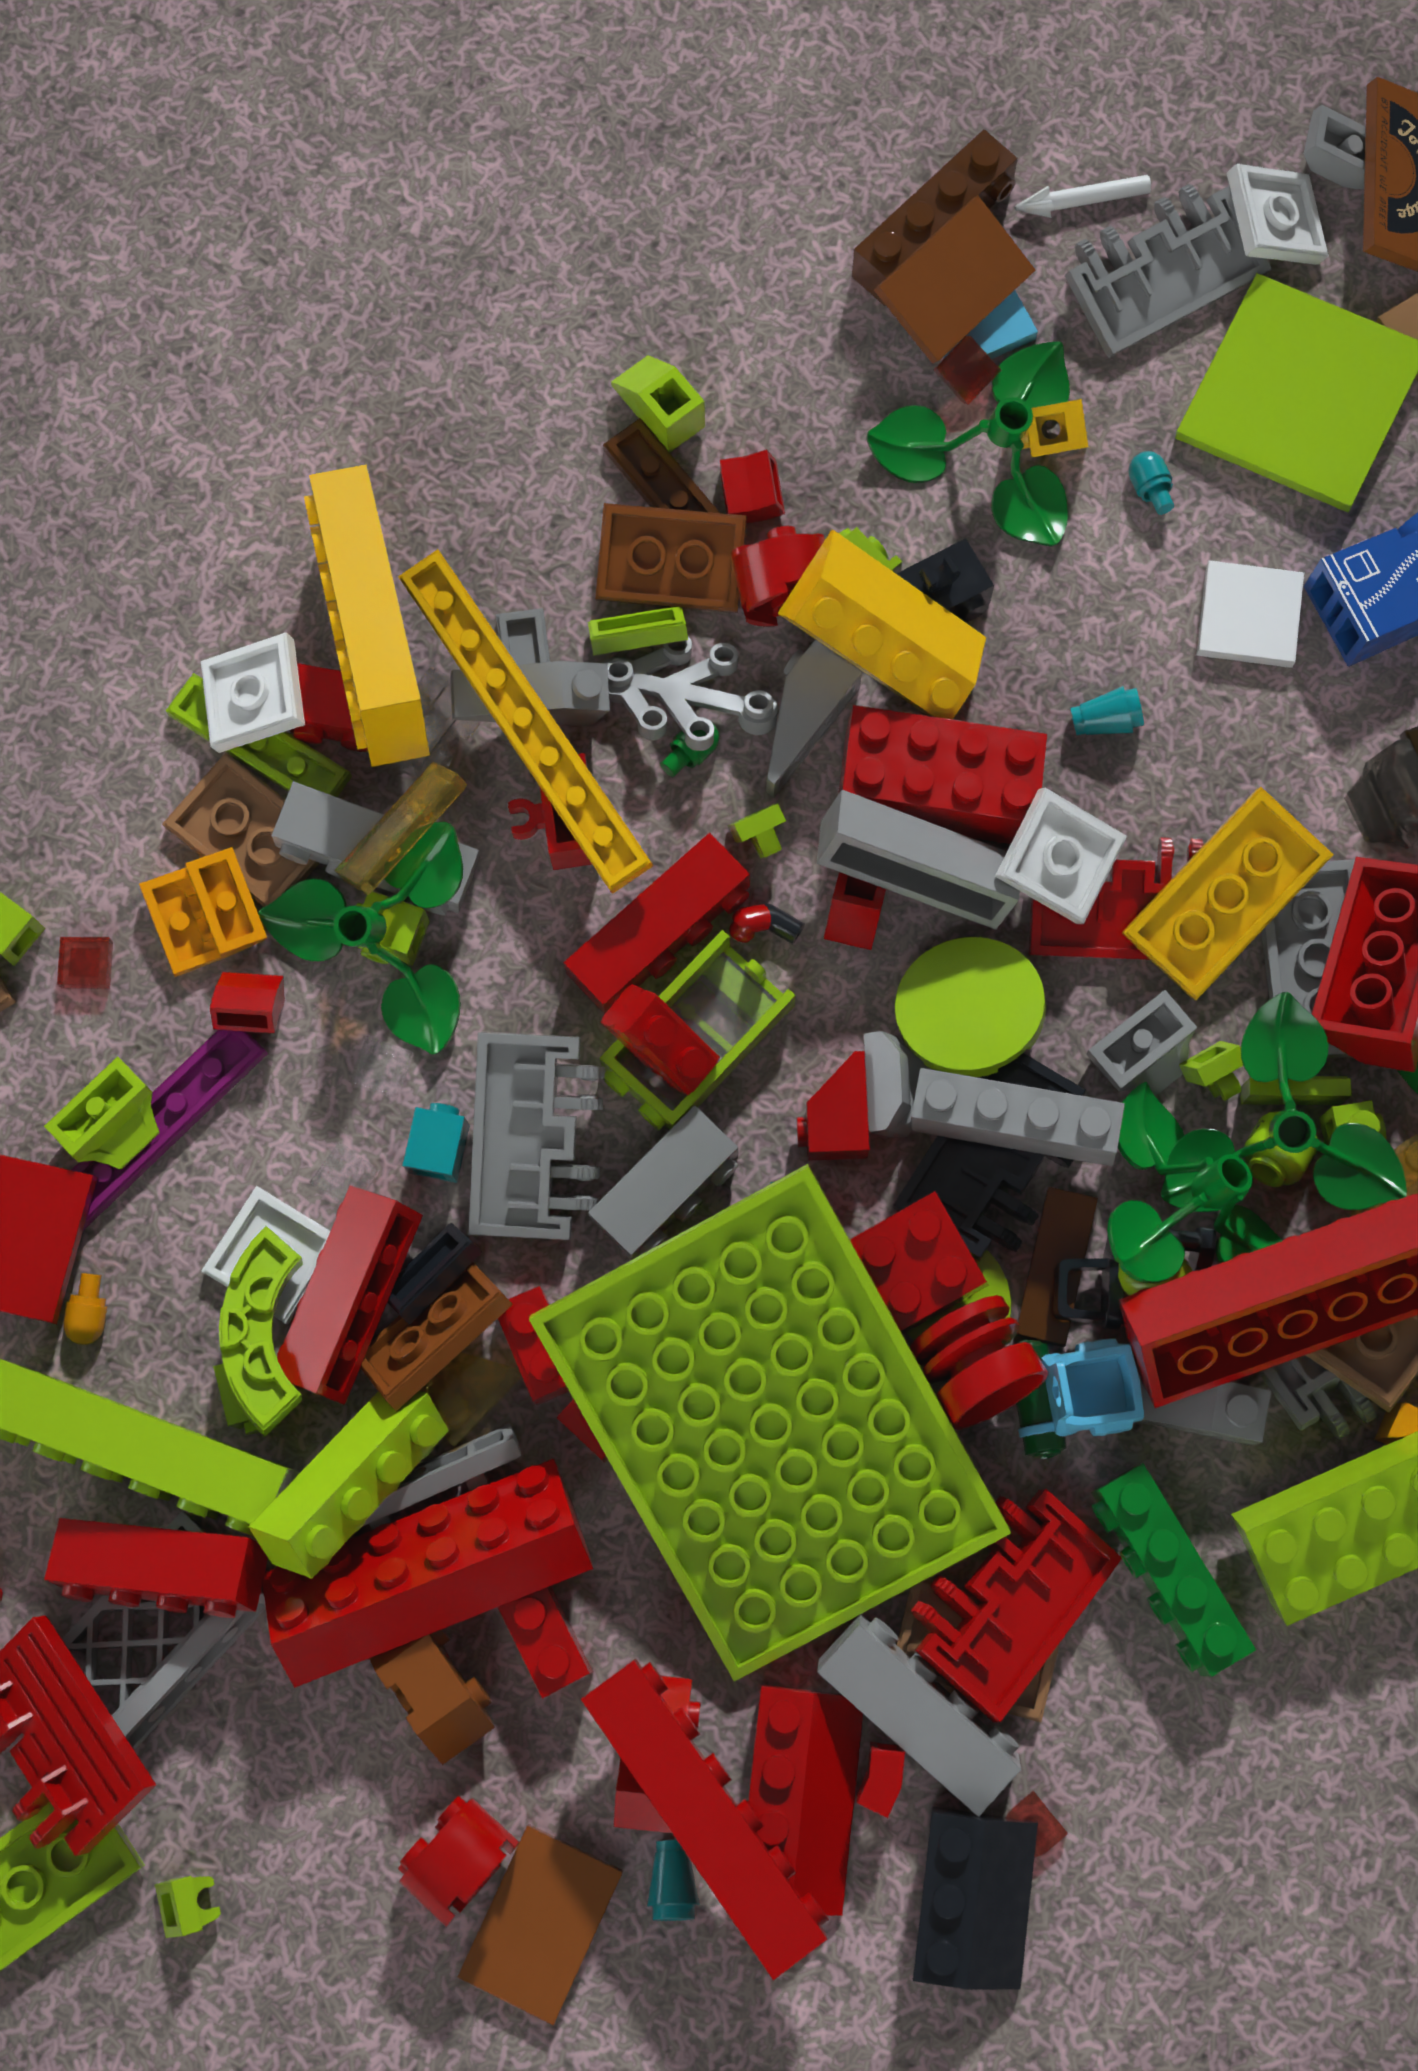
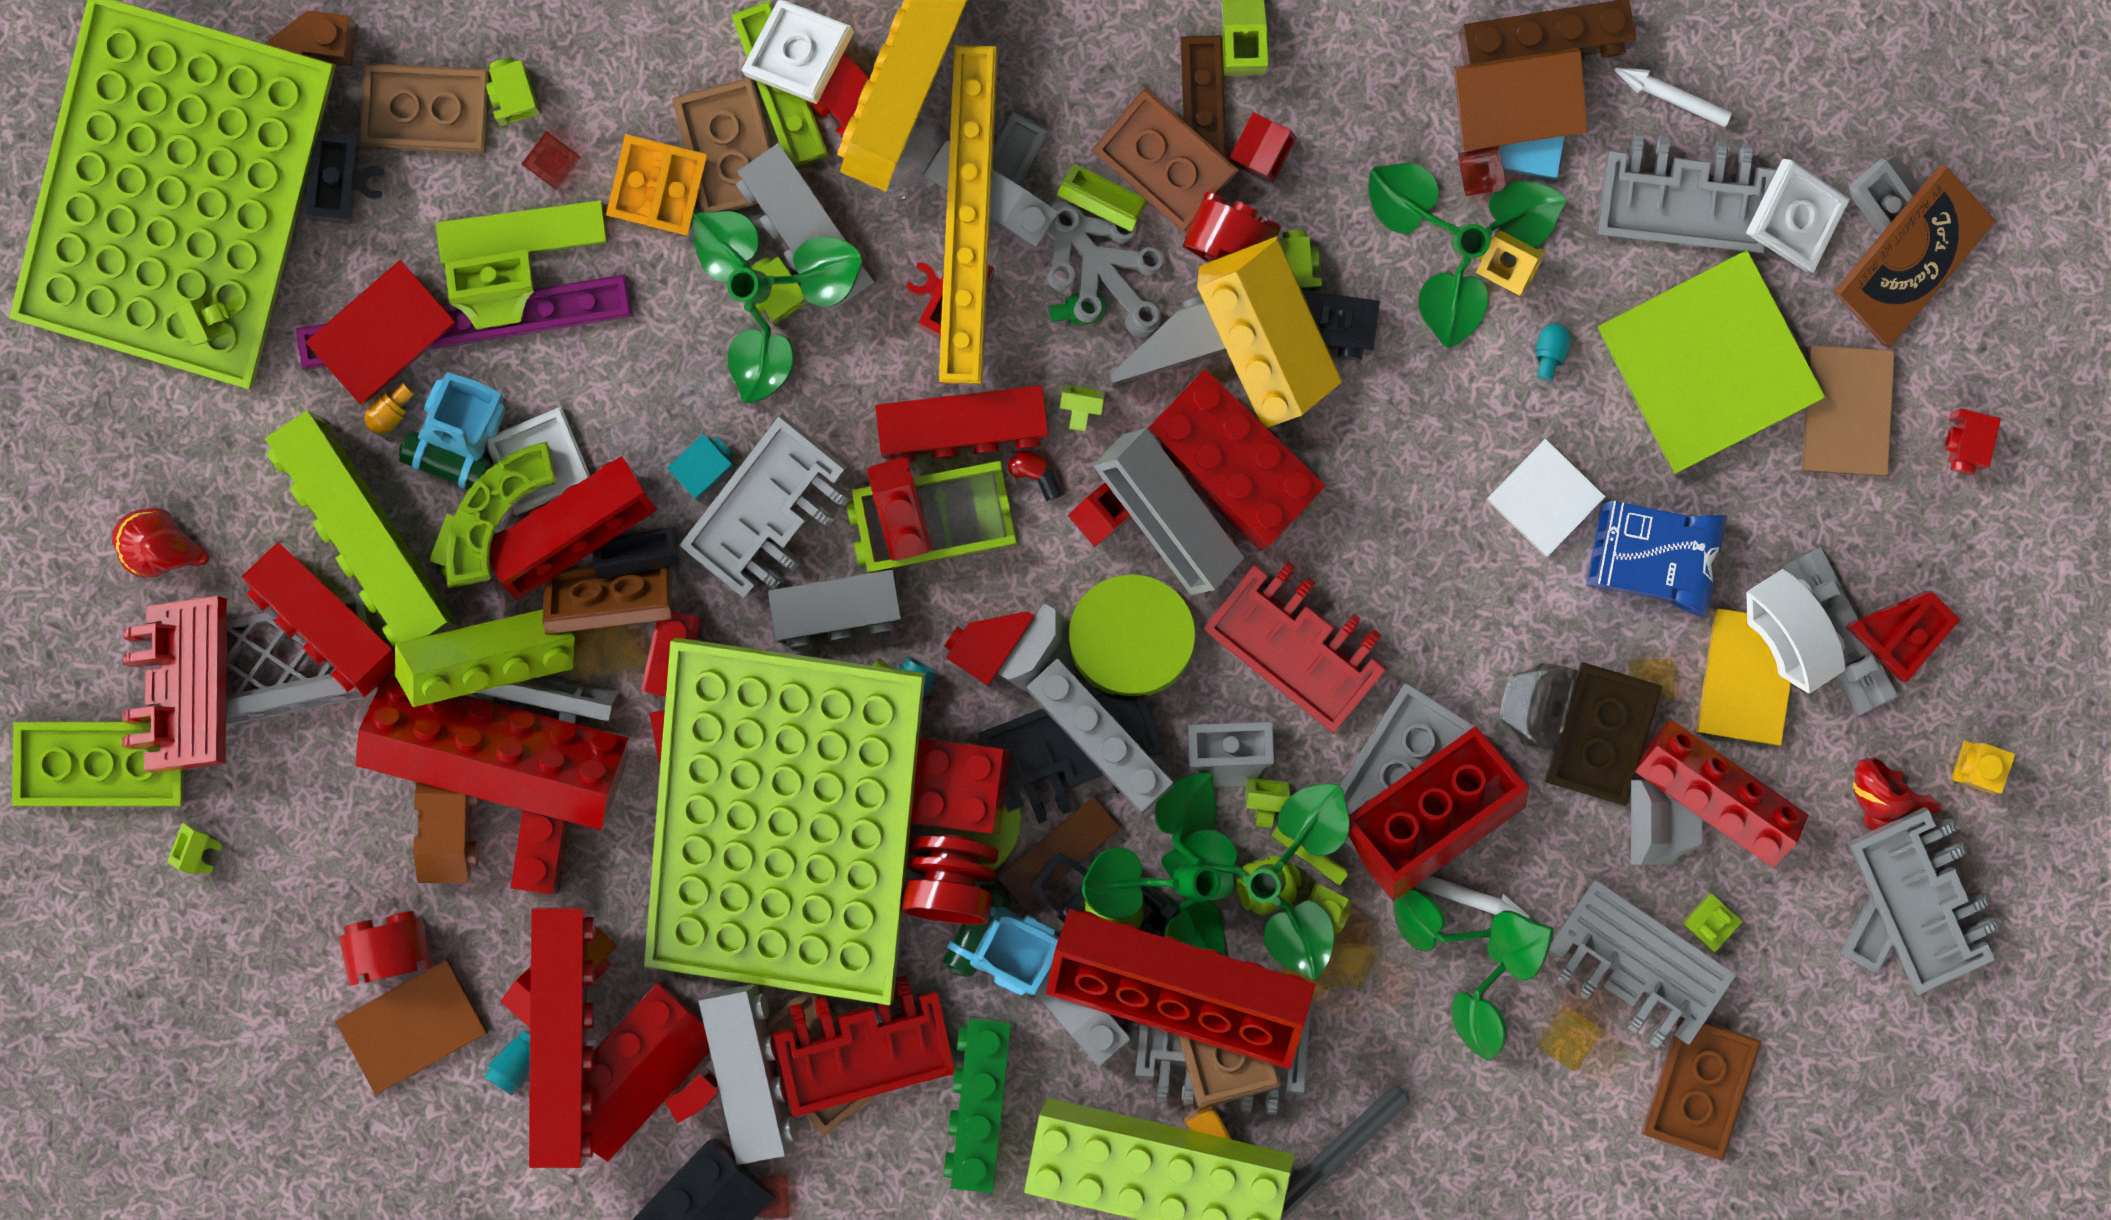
camera: 30 degrees right, 10 degrees up
(118, 1032) = (528, 229): none -> lime tile
(167, 1281) = (455, 431): none -> medium azure piece
(247, 1002) = (642, 273): red piece -> none
(401, 828) = (827, 232): clear yellow tile -> none
(1061, 856) = (1267, 580): white tile -> none
(1109, 713) = (1389, 499): teal cone -> none
(1227, 893) = (1365, 687): yellow tile -> none

